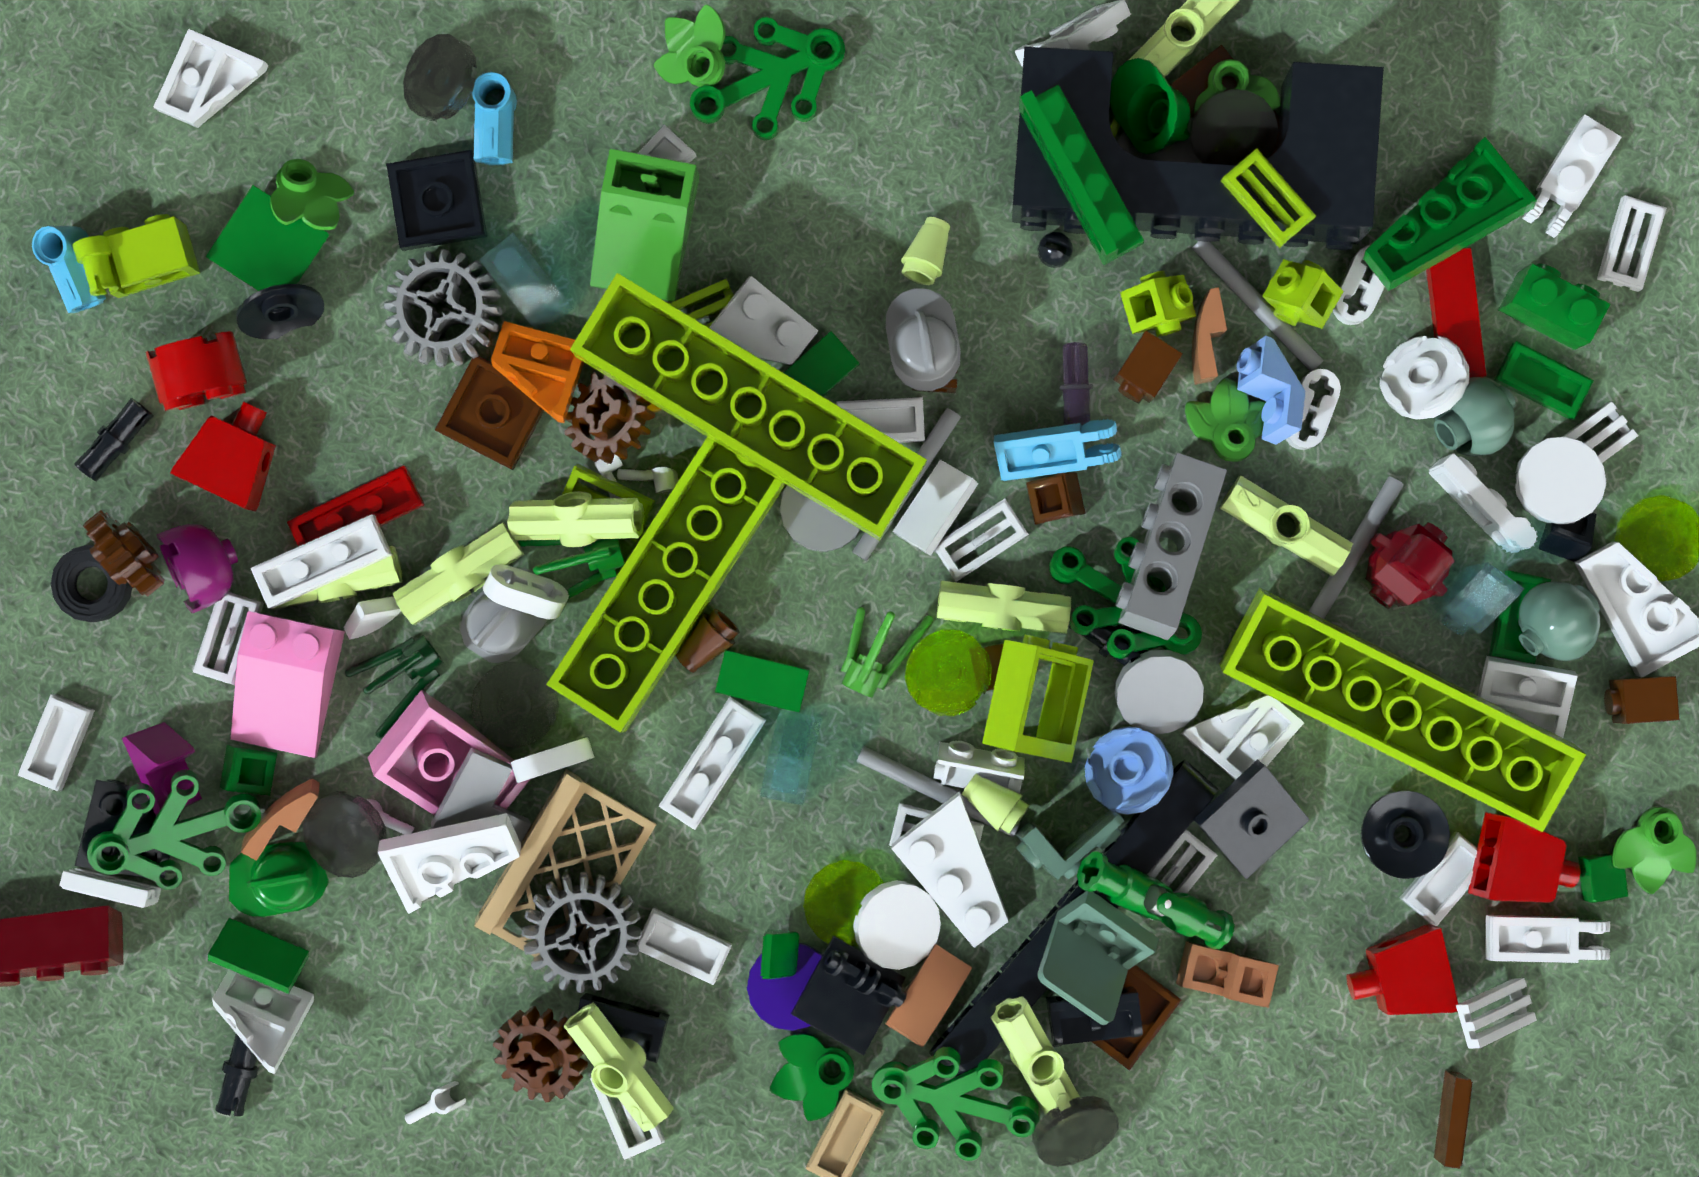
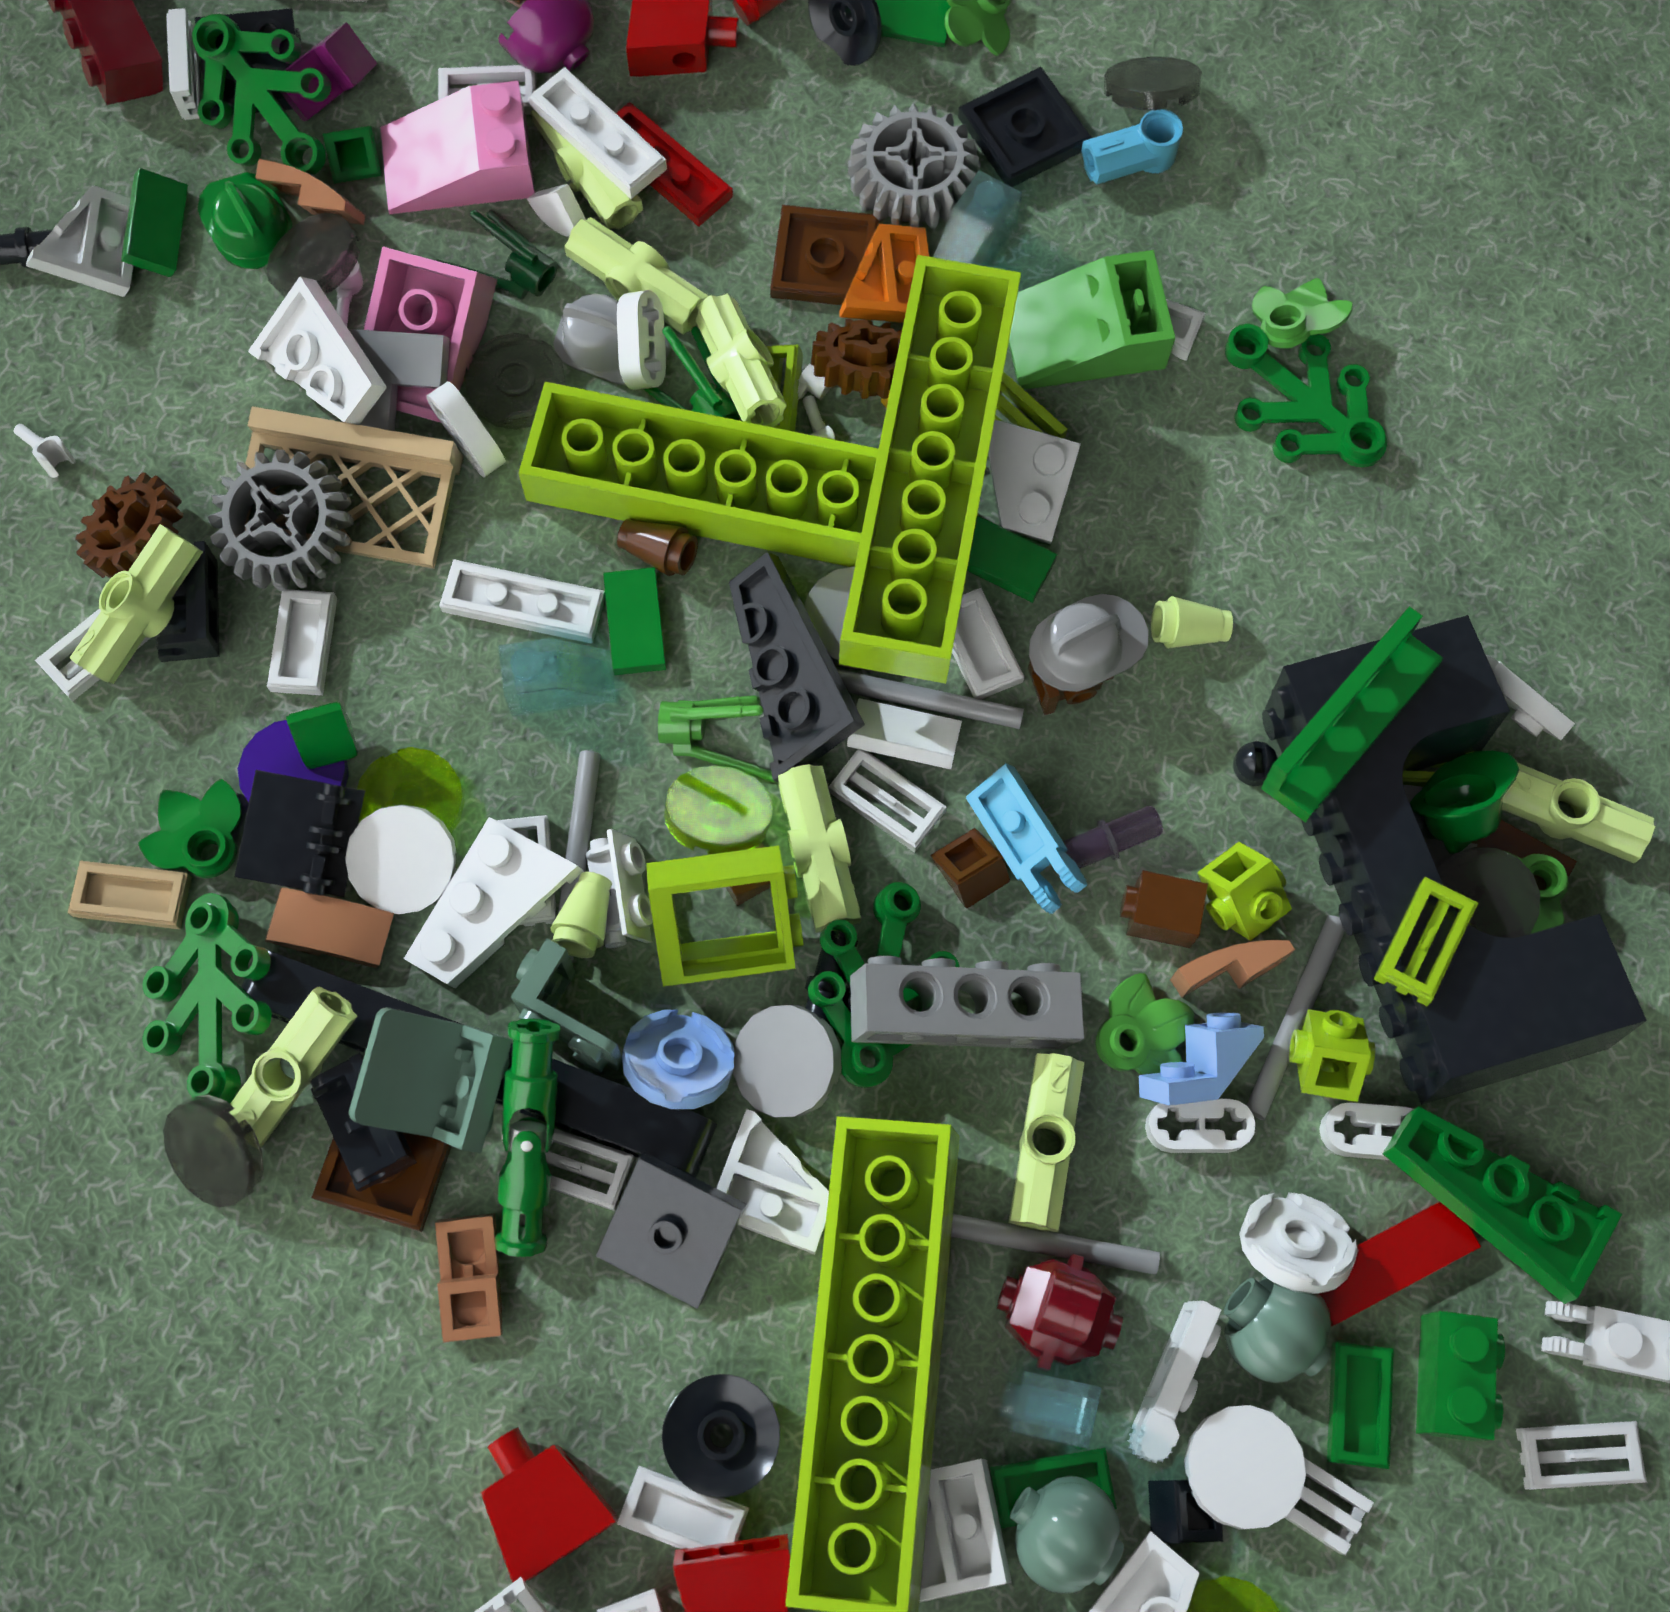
camera: 60 degrees right, 15 degrees down
(861, 574) = (792, 671): none -> black wing

